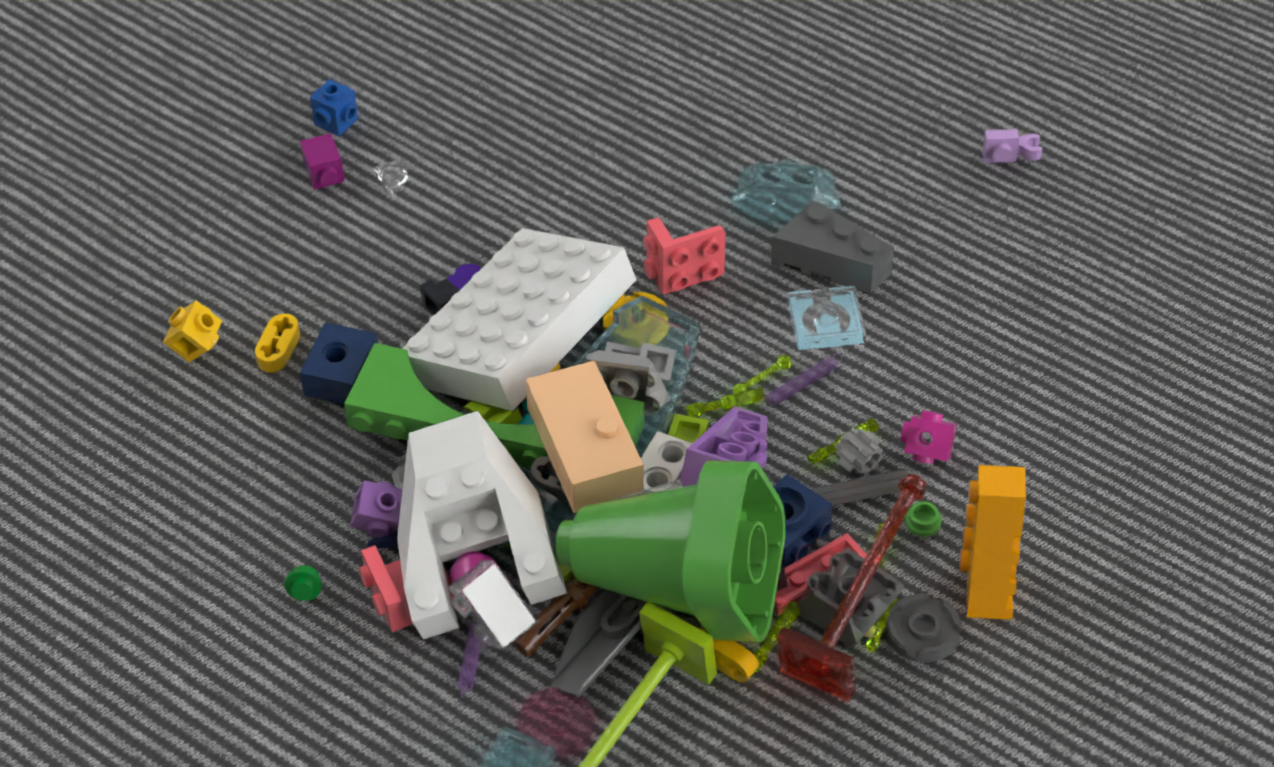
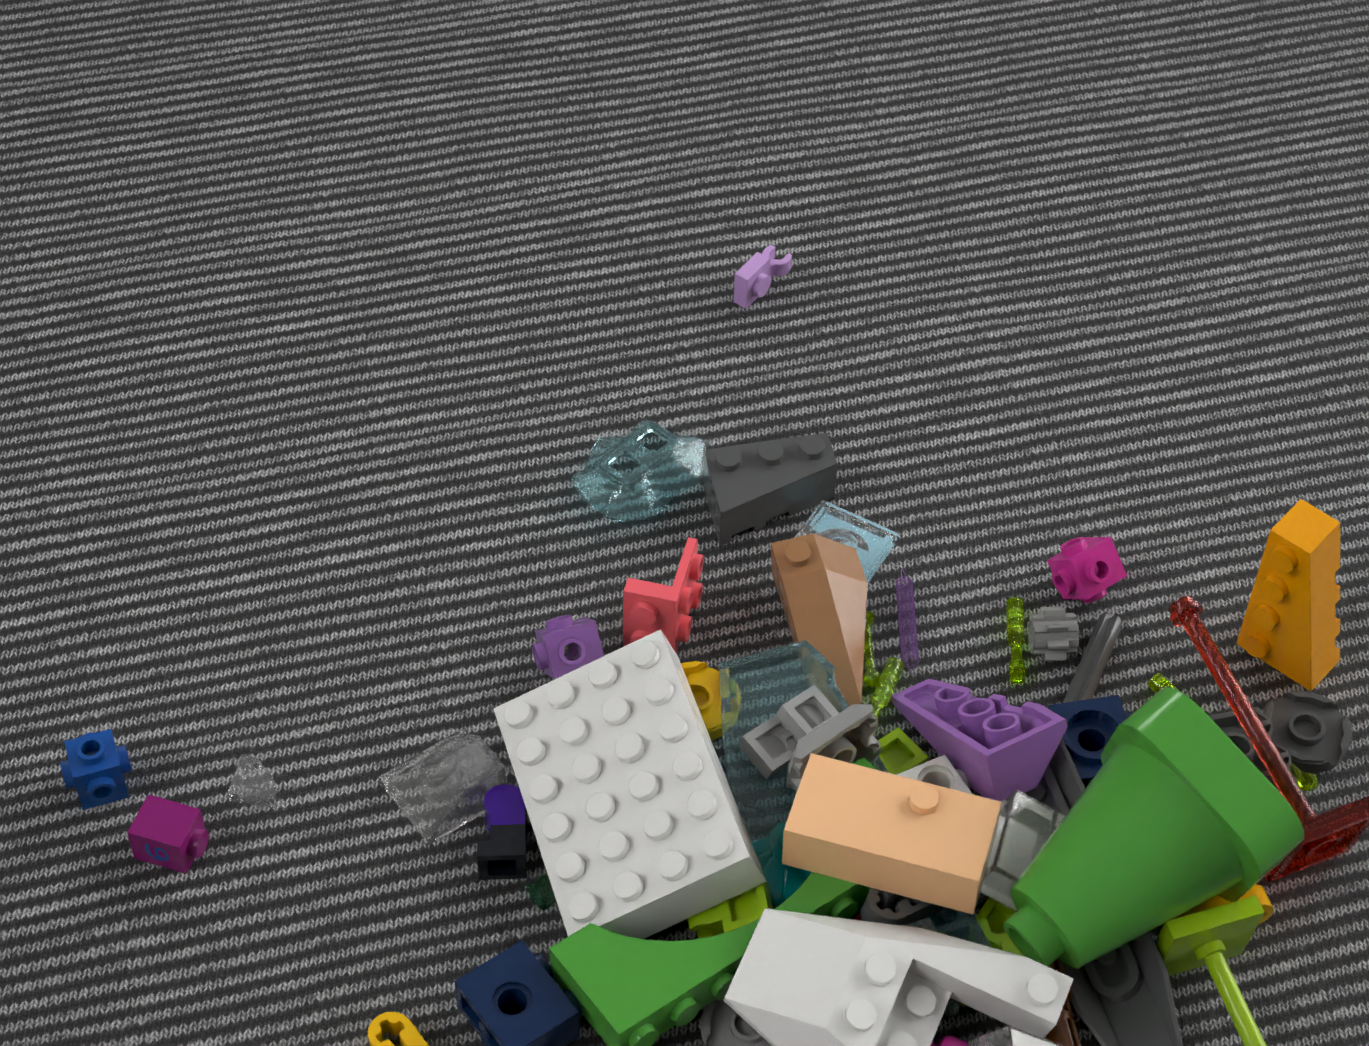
camera: 55 degrees left, 0 degrees up
(463, 245) = (445, 784): none -> clear slope
(608, 230) = (582, 642): none -> medium lavender brick
(760, 326) = (825, 603): none -> medium nougat wedge
(923, 519) = (1172, 644): bright green plate -> none

